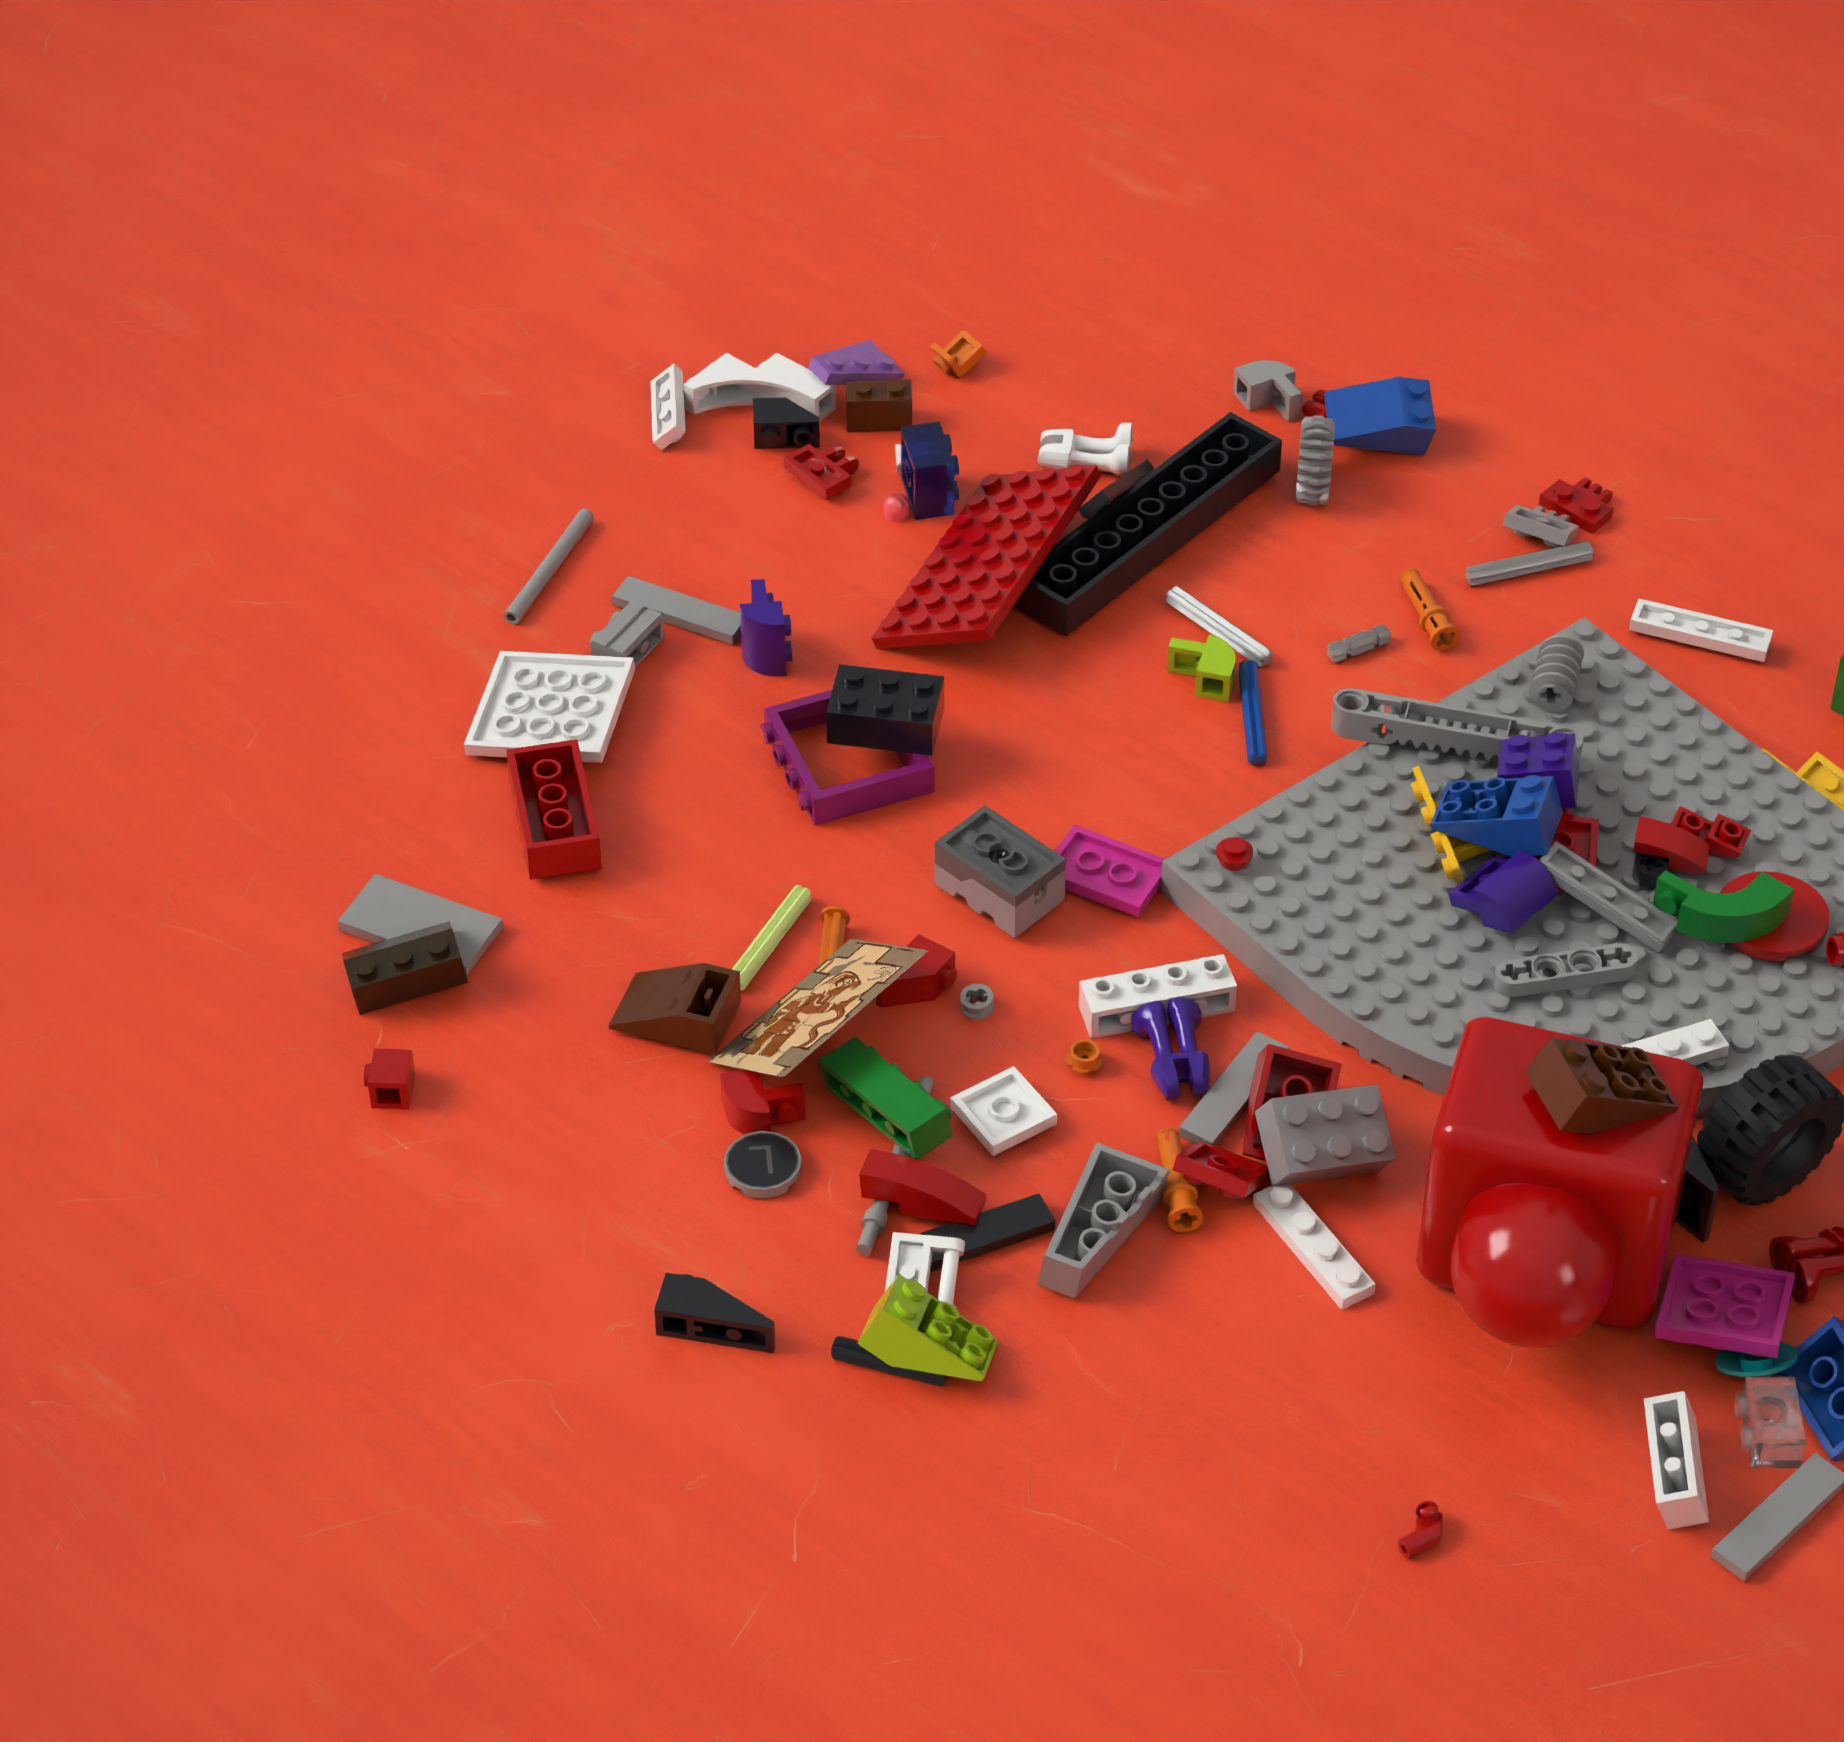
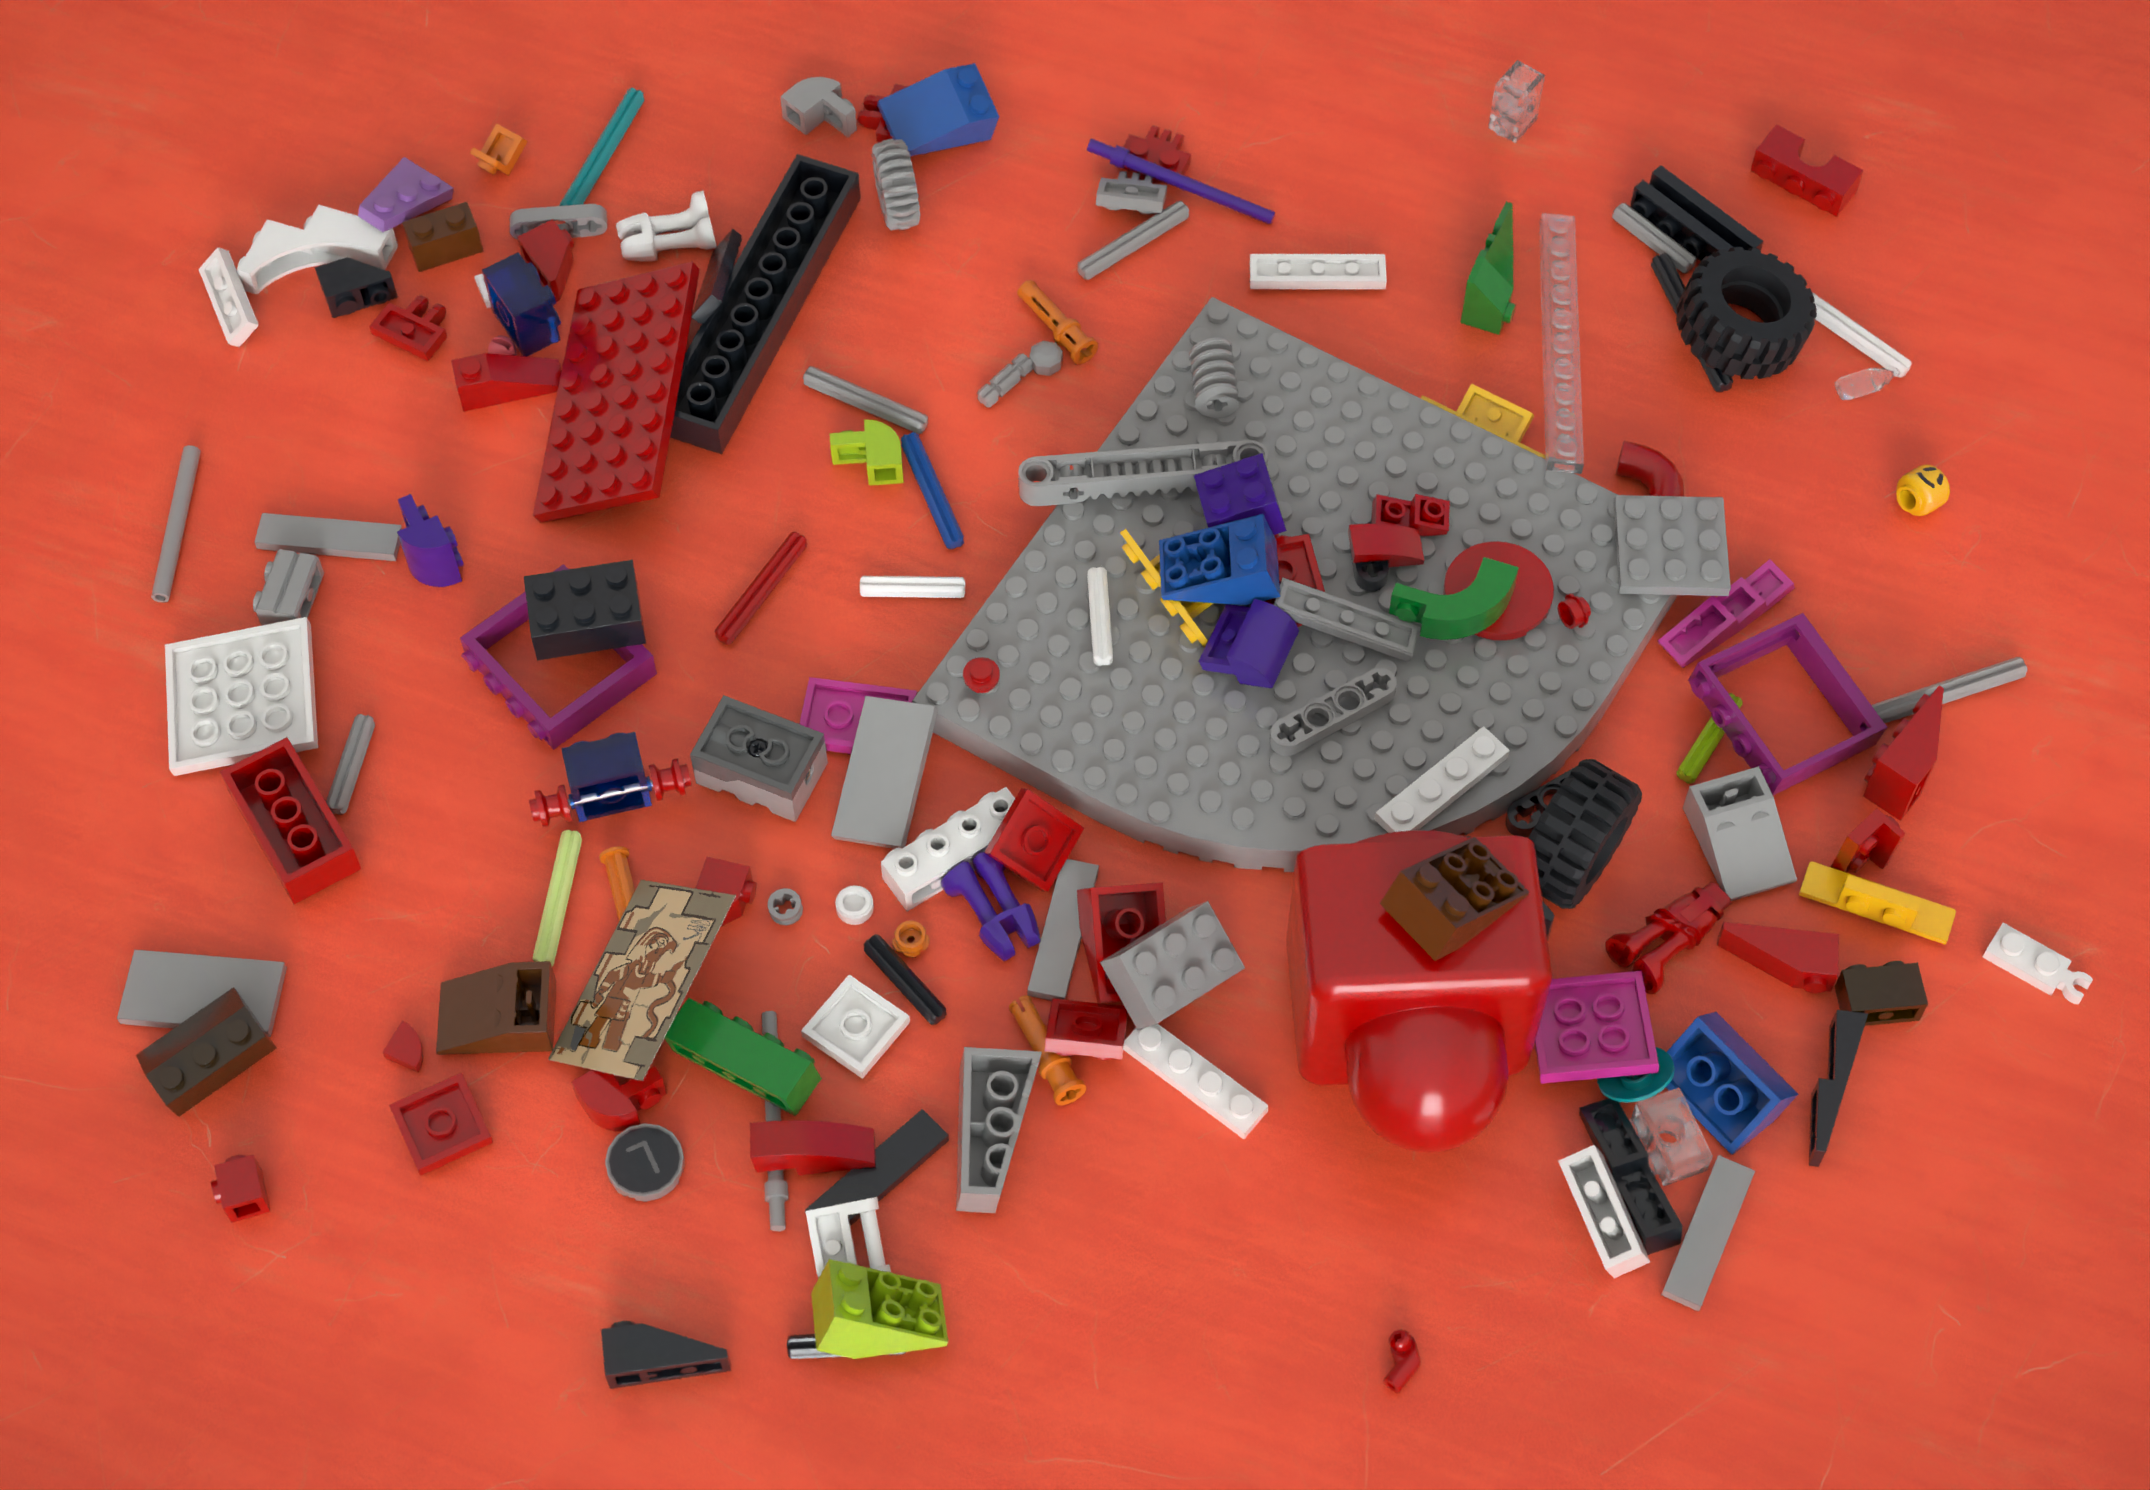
camera: 20 degrees left, 15 degrees up
(582, 1015) = (405, 1048): none -> red tile
(589, 1080) = (441, 1124): none -> red plate
(626, 785) = (350, 764): none -> light grey axle
(851, 852) = (607, 780): none -> clear blue brick
(886, 526) = (500, 378): none -> red slope
(971, 442) = (550, 253): none -> red slope
(1010, 432) = (580, 220): none -> light grey beam
(1043, 1018) = (854, 905): none -> white tile
(1052, 378) = (604, 148): none -> teal axle
(1058, 747) = (760, 588): none -> red axle
(1066, 1088) = (905, 979): none -> black axle
(1113, 914) = (884, 772): none -> light grey tile
(1202, 782) = (912, 586): none -> white axle
(1233, 1002) = (1034, 840): none -> red plate
(1368, 836) = (1100, 616): none -> white axle
(1406, 636) = (1046, 358): none -> light grey tile
(1544, 493) = (1121, 157): none -> dark purple bar
(1720, 1448) = (1629, 1166): none -> black slope

